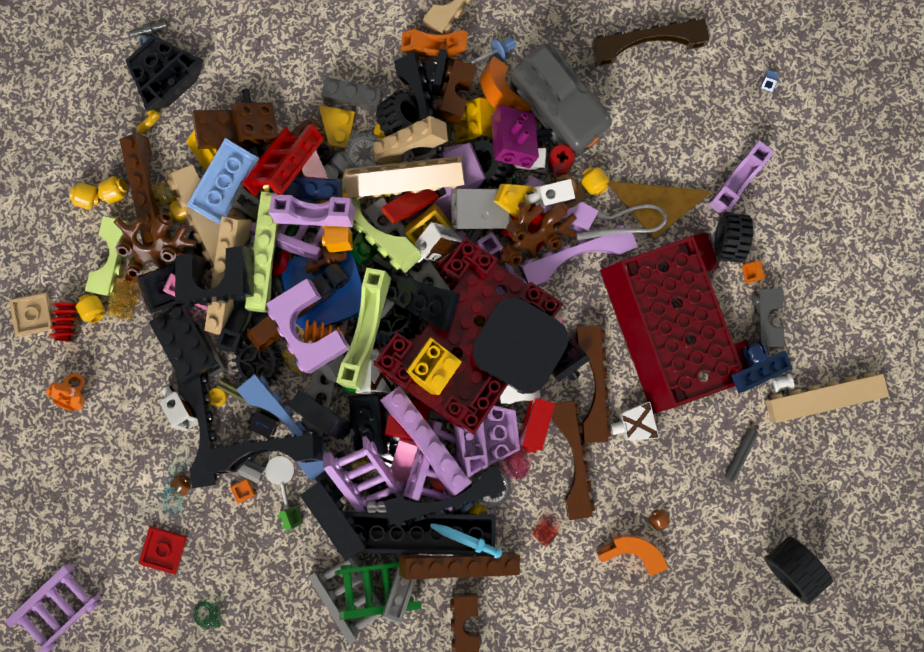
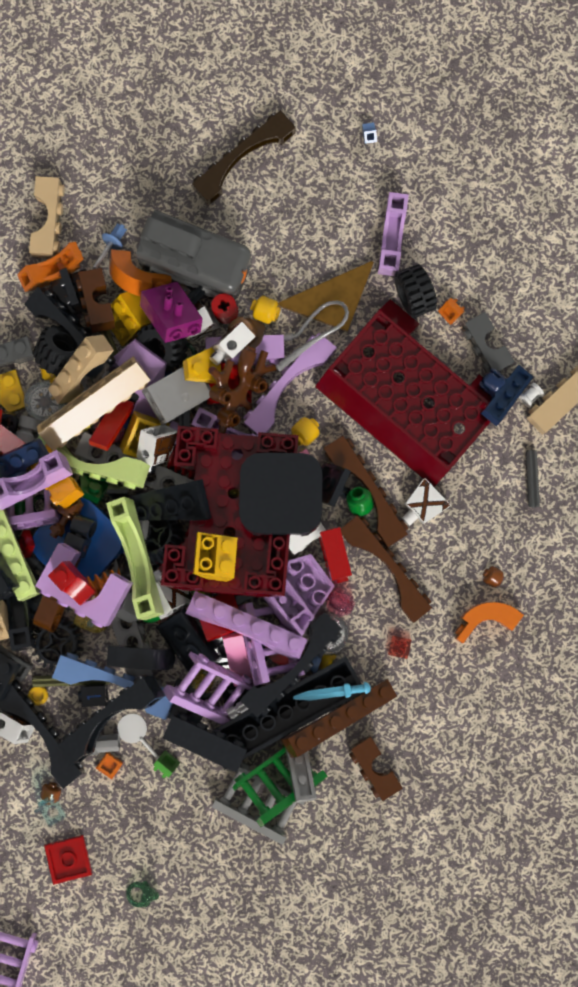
camera: 30 degrees left, 0 degrees up
(299, 318) = (72, 582): none -> red arch
(571, 302) = (306, 429): none -> yellow head
(582, 389) = (359, 501): none -> green head

